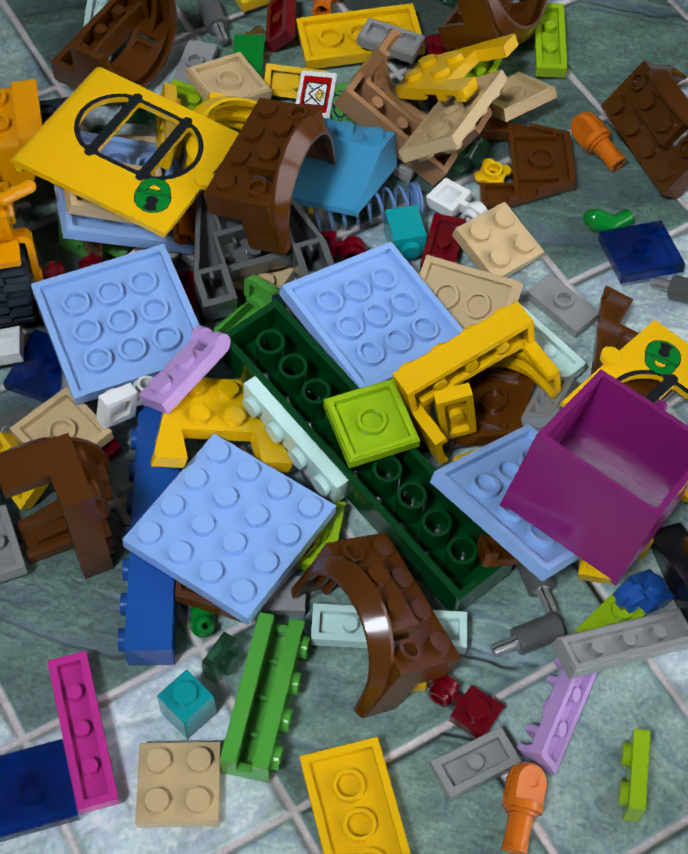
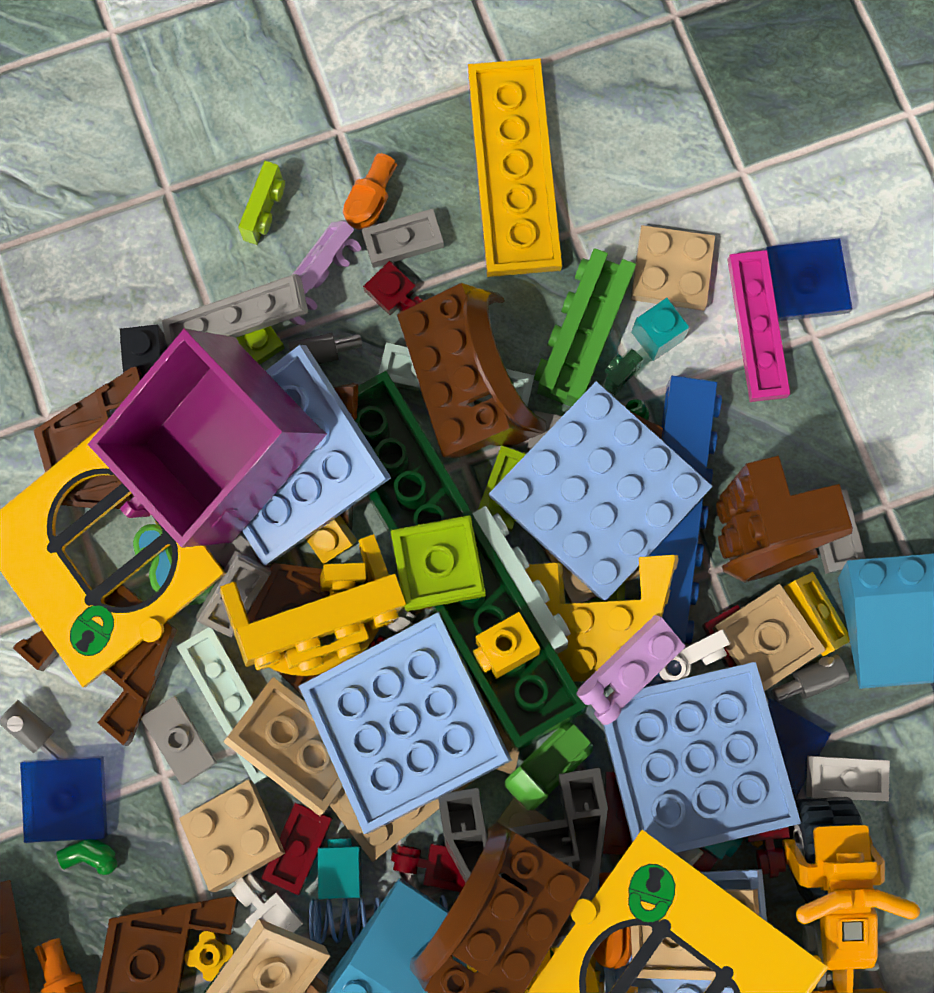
camera: 170 degrees left, 20 degrees up
(297, 361) = (506, 646): none -> yellow brick

